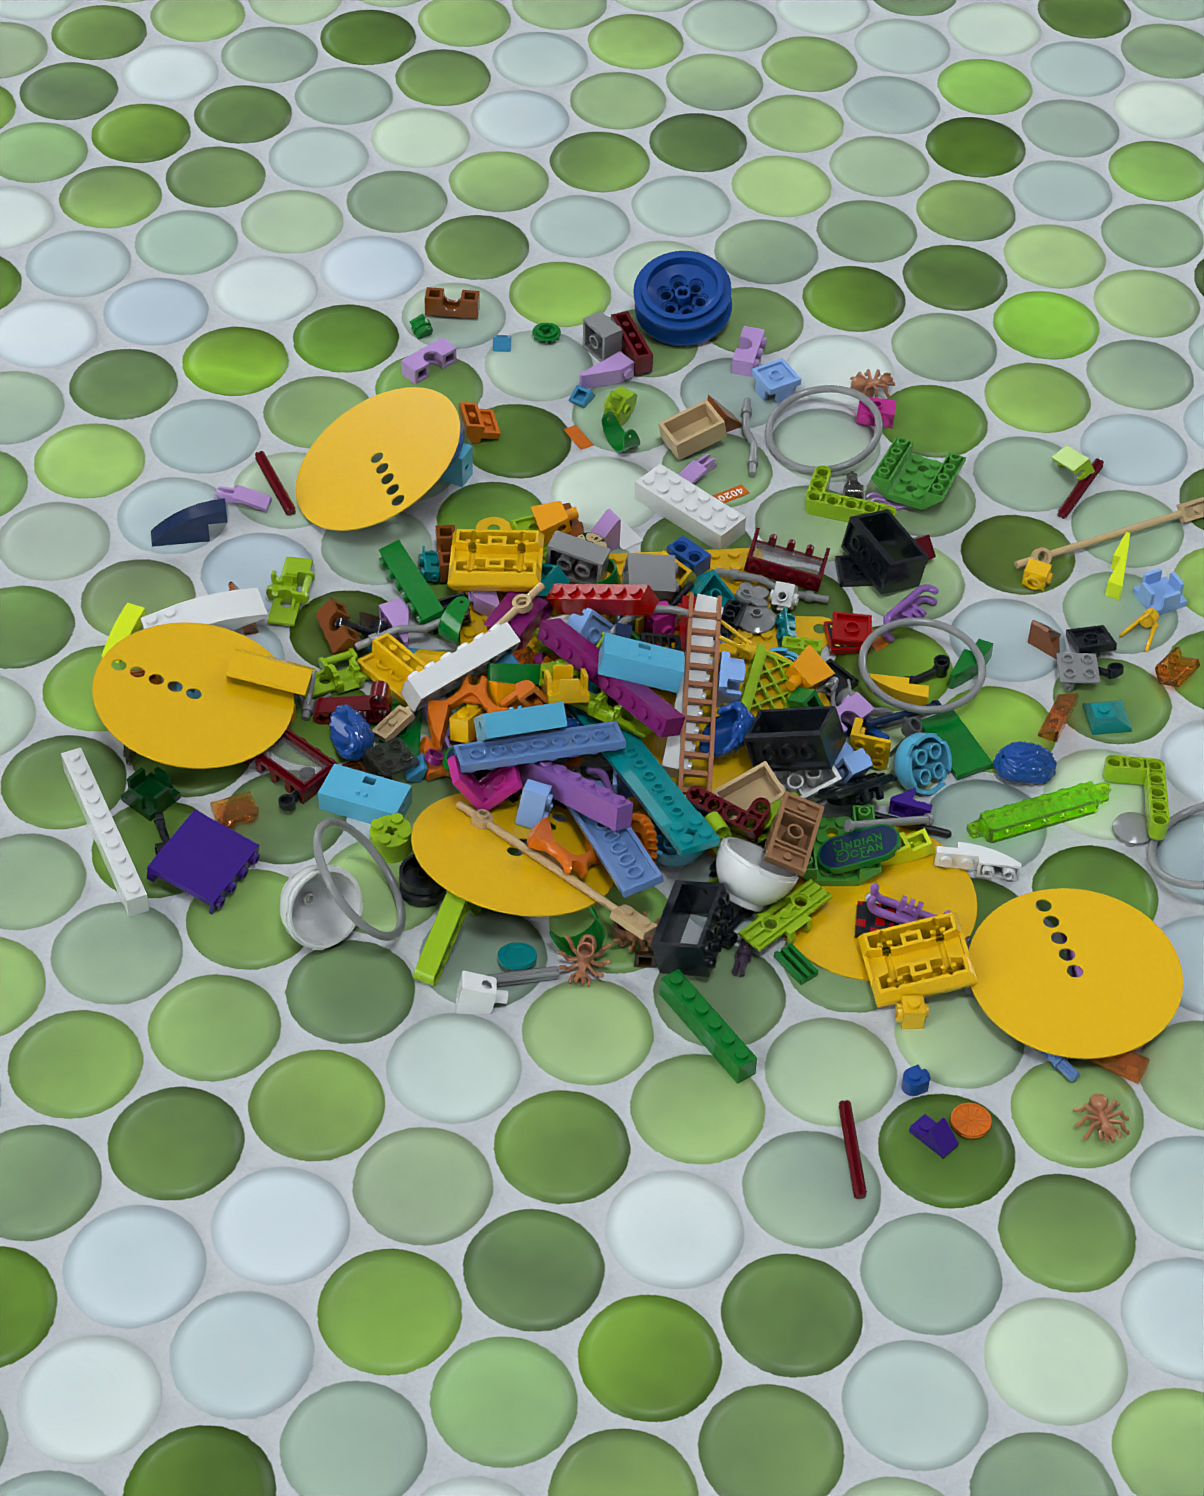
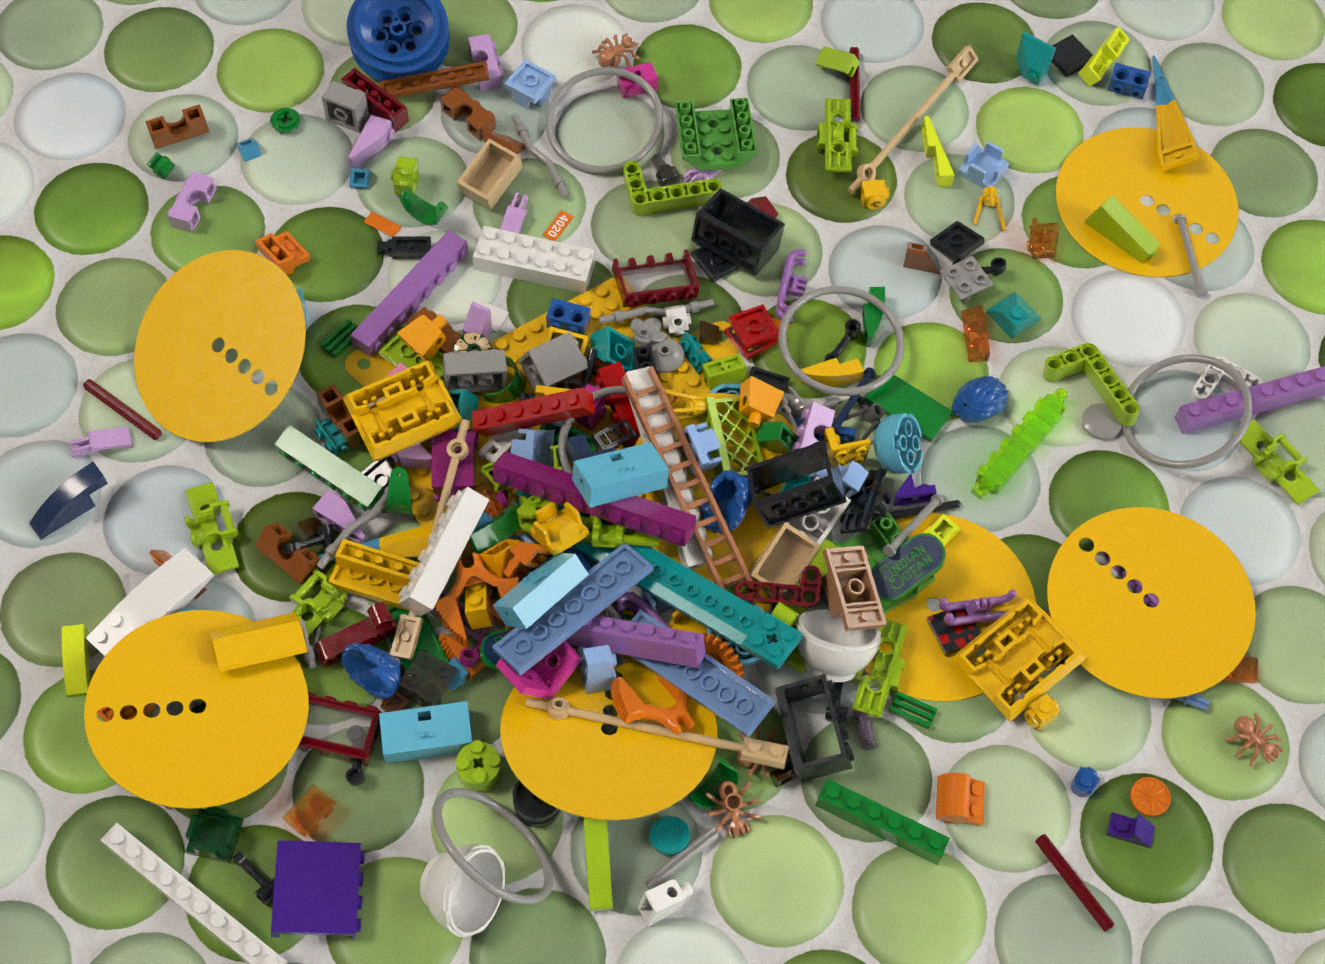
camera: 30 degrees left, 15 degrees up
(487, 503) = (337, 337): none -> green tile
(567, 489) = (409, 294): none -> medium lavender brick
(586, 458) = (405, 246): none -> black hinge
(694, 346) = (436, 80): none -> dark orange plate
(704, 373) = (458, 103): none -> dark orange arch
(791, 1042) = (960, 799): none -> orange brick
(807, 619) = (708, 333): none -> dark brown slope
(984, 860) = (1007, 519): white slope -> none
(1024, 520) = (831, 135): none -> lime piece

